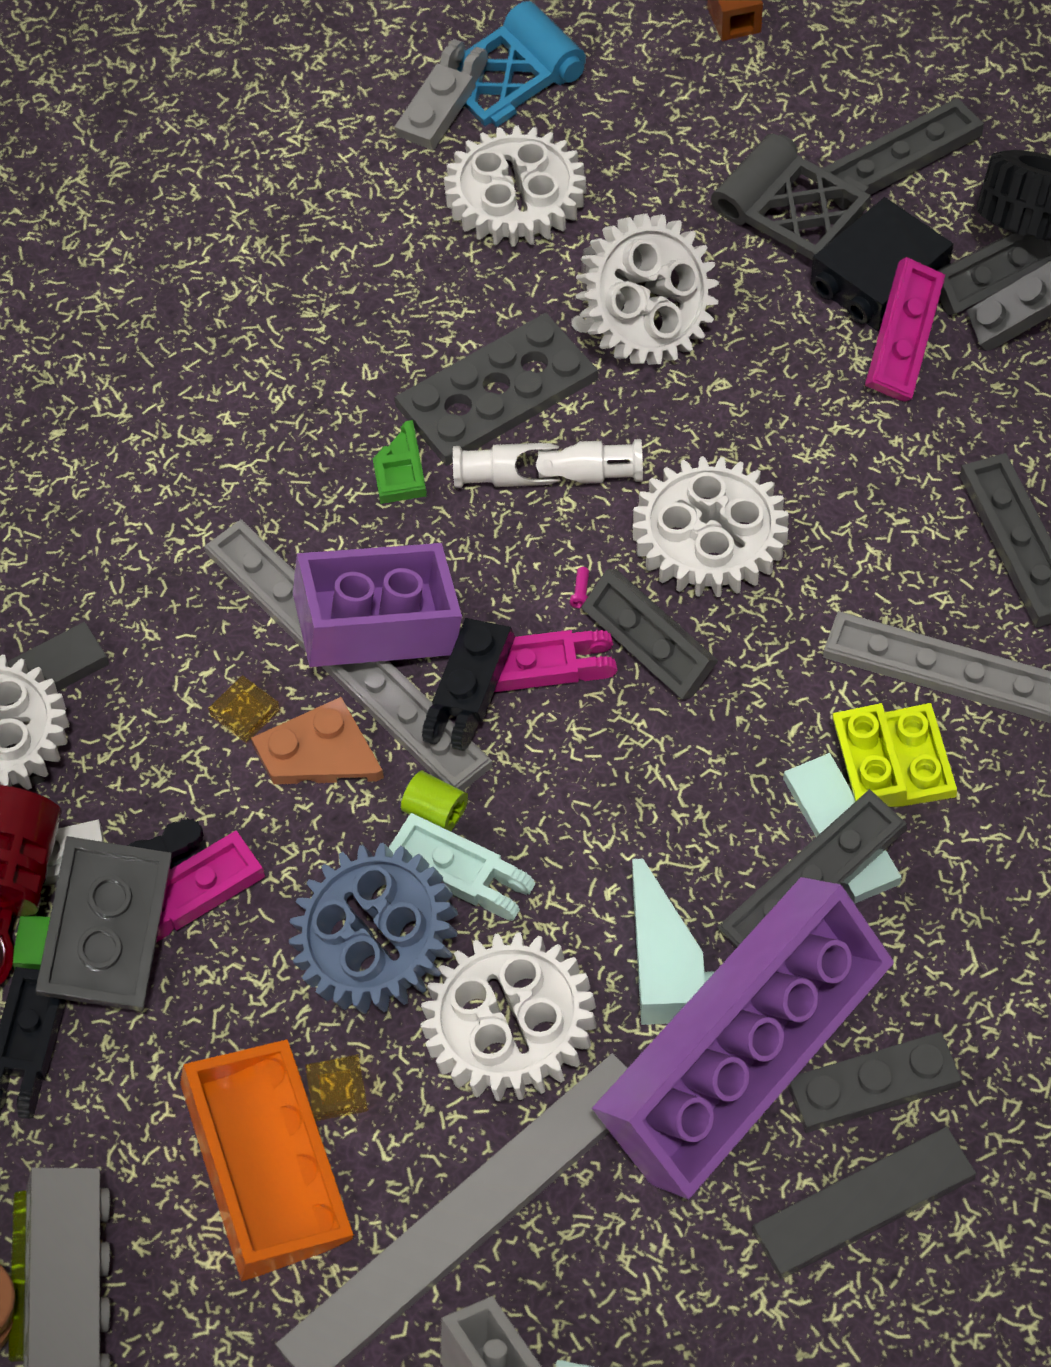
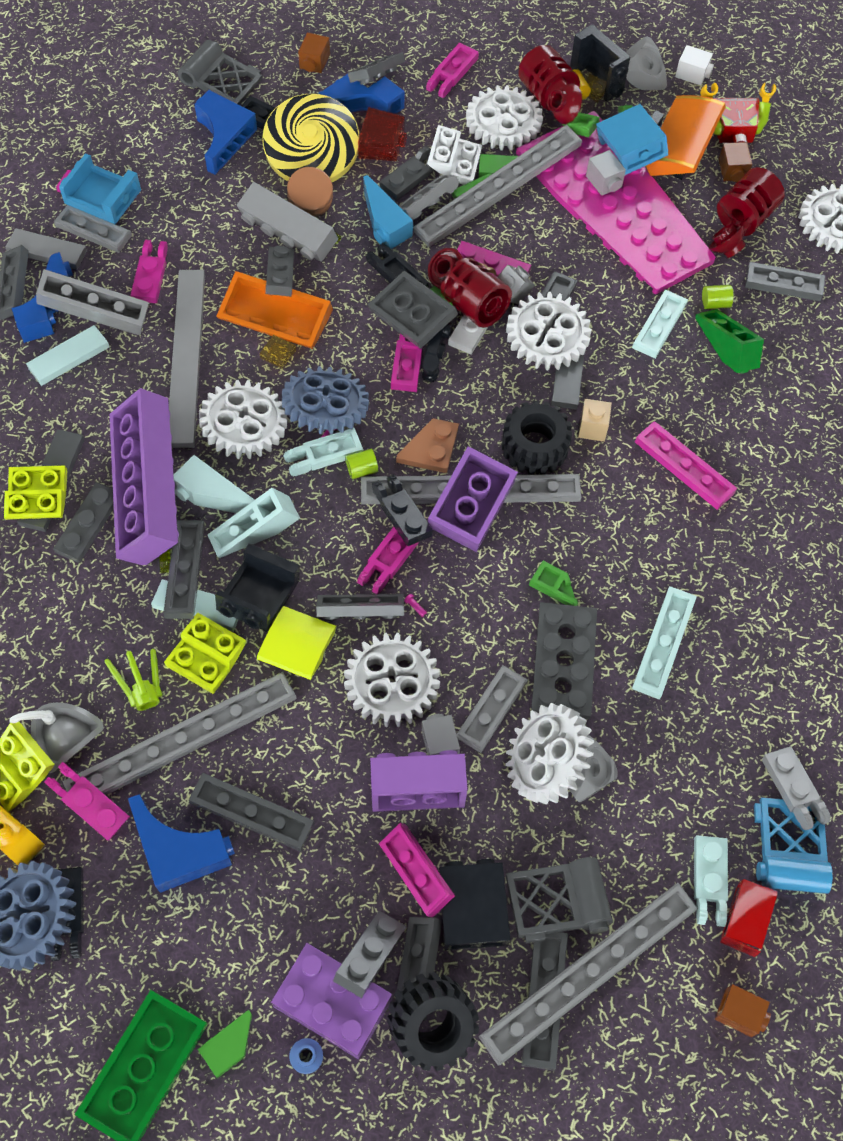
camera: 125 degrees right, 5 degrees up
(80, 444) = (685, 465): none -> dark pink plate
(100, 576) = (594, 420): none -> tan brick
(183, 1197) = (280, 271): none -> dark grey plate
(200, 649) = (531, 455): none -> black tyre
(244, 709) = (478, 434): clear yellow tile -> none
(374, 307) = (664, 643): none -> light aqua plate
(485, 194) = (683, 793): white gear -> none
(581, 462) = (508, 624): white piece -> none
(622, 108) = (711, 877): none -> light aqua hinge
(635, 413) = (491, 709): none -> light grey tile
(644, 31) = (749, 918): none -> red piece
(681, 860) = (254, 523): none -> light aqua slope
(731, 423) = (439, 734): none -> light grey brick
(753, 762) = (258, 588): none -> black panel
(772, 662) = (296, 642): none -> neon yellow slope
(813, 388) = (418, 781): none -> medium lavender brick
(836, 128) = (586, 974): none -> light grey tile
(913, 1180) = (35, 492): none -> neon yellow slope
(1018, 775) = (143, 694): none -> lime plant

